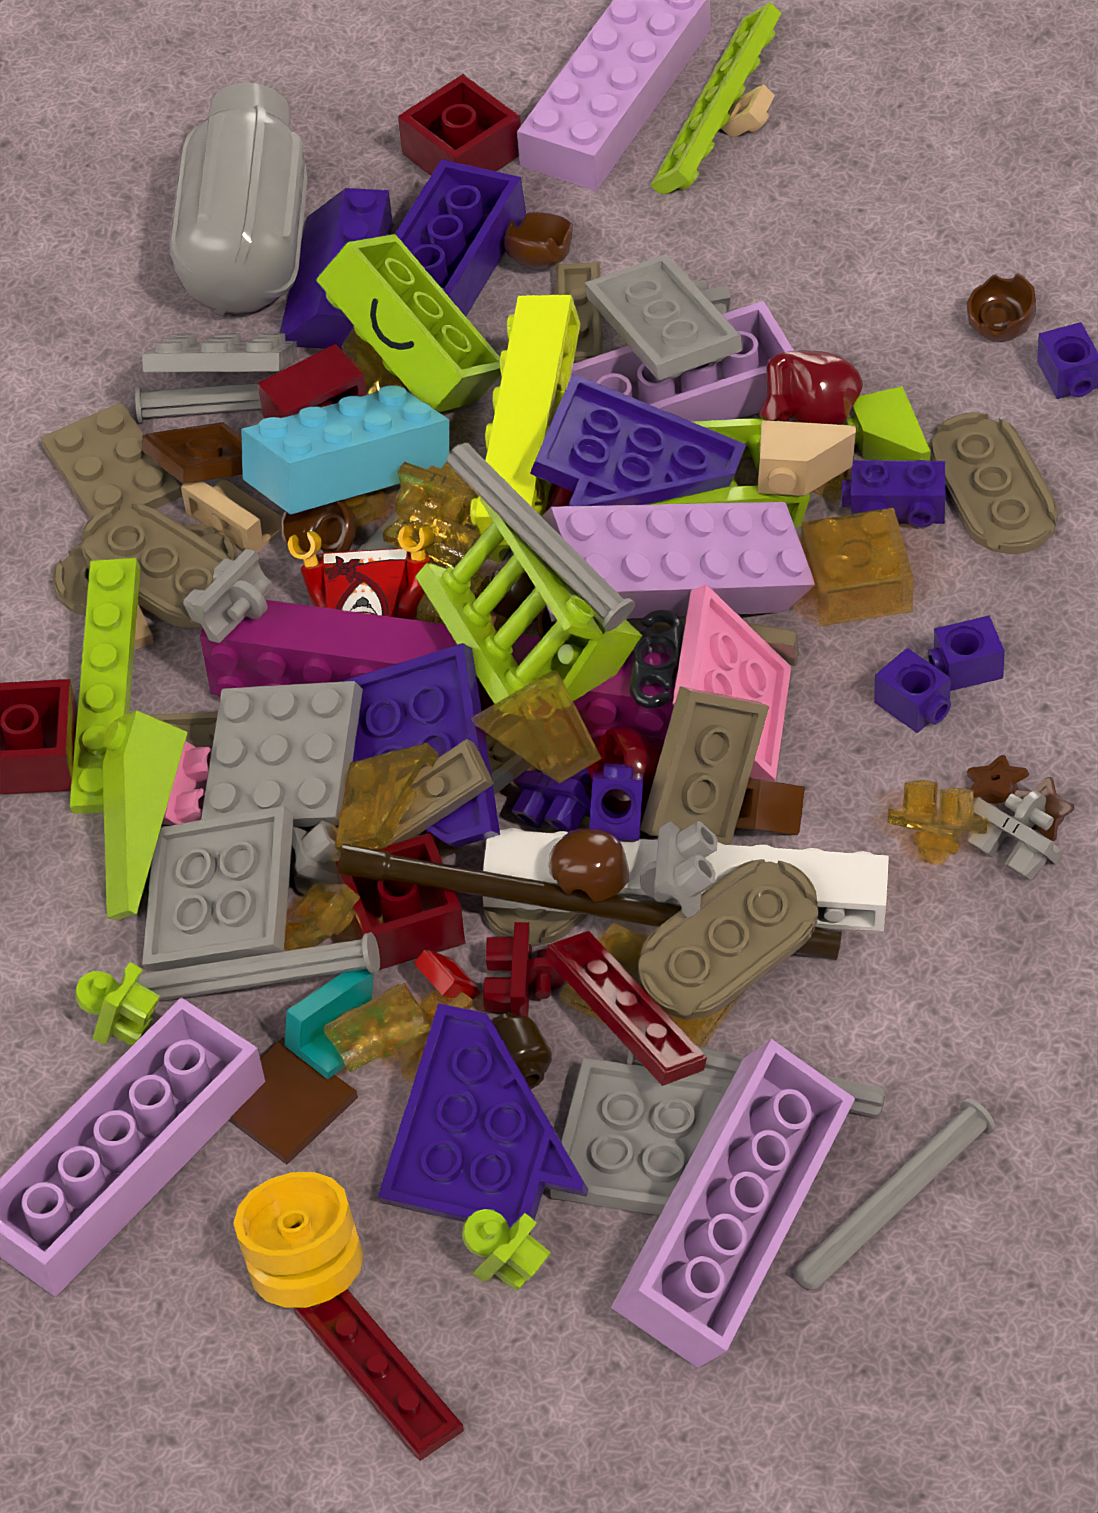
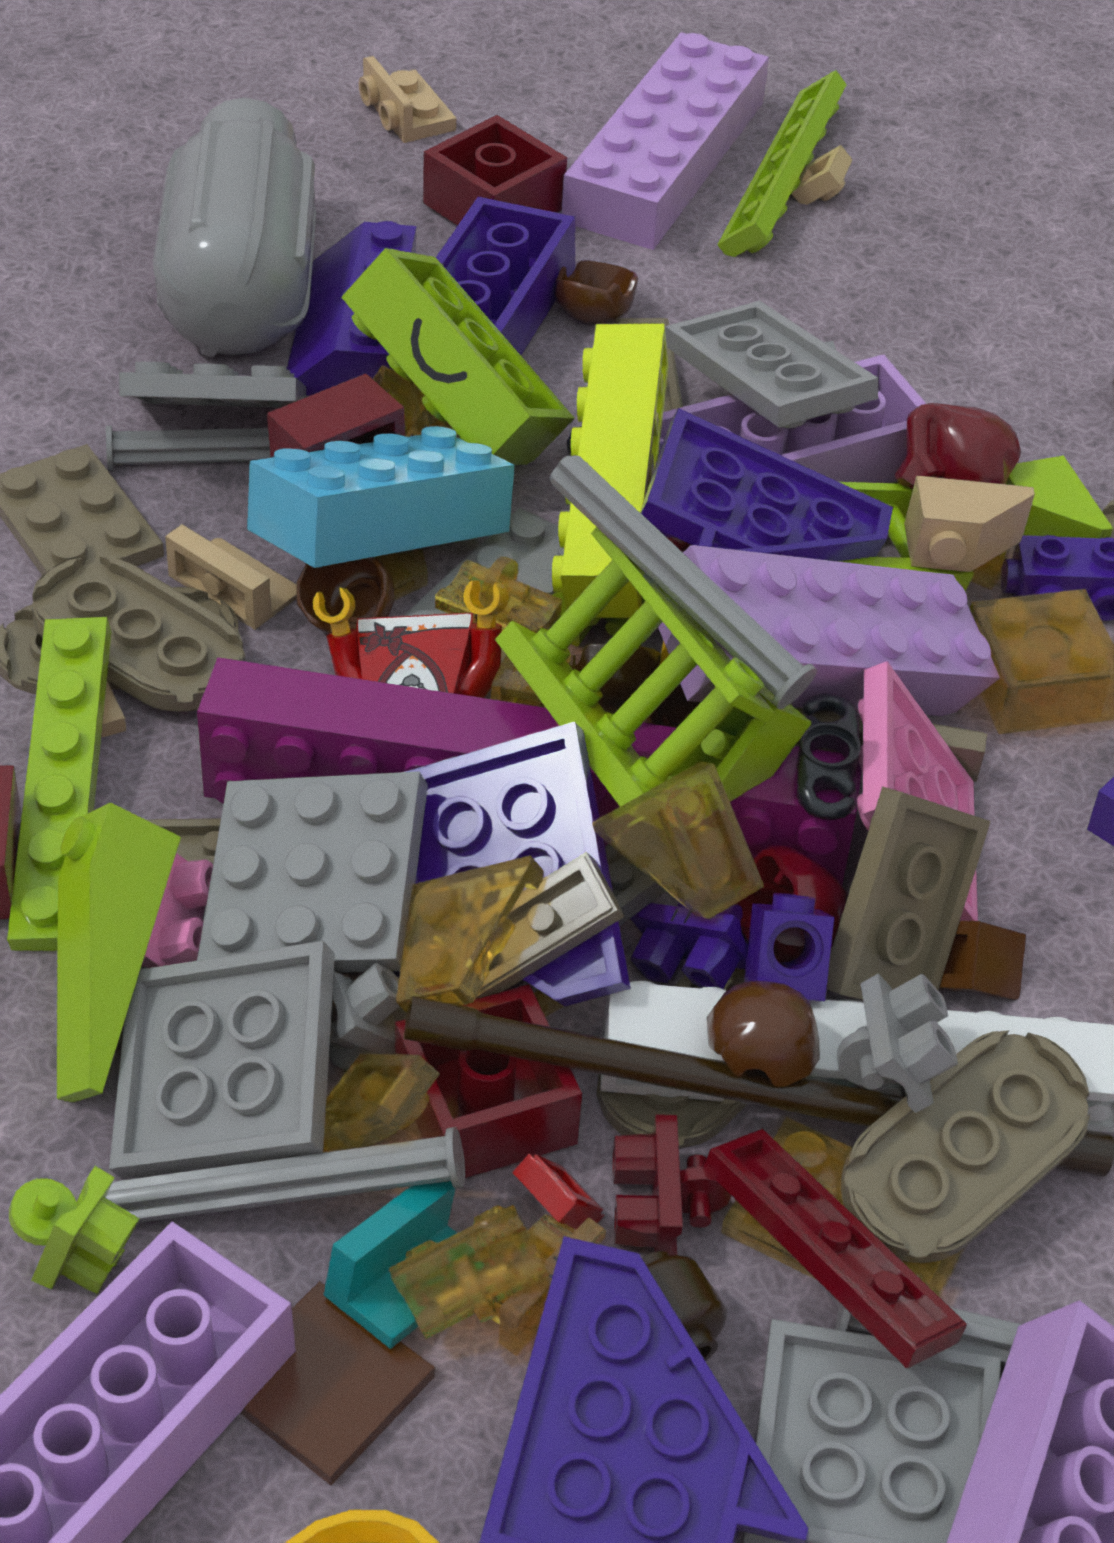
camera: 10 degrees left, 5 degrees down
(196, 452) = (185, 499): reddish brown tile -> none
(233, 595) = (246, 655): light grey hips -> none
(392, 50) = (404, 102): none -> tan bracket
(437, 486) = (487, 541): clear yellow hips -> none

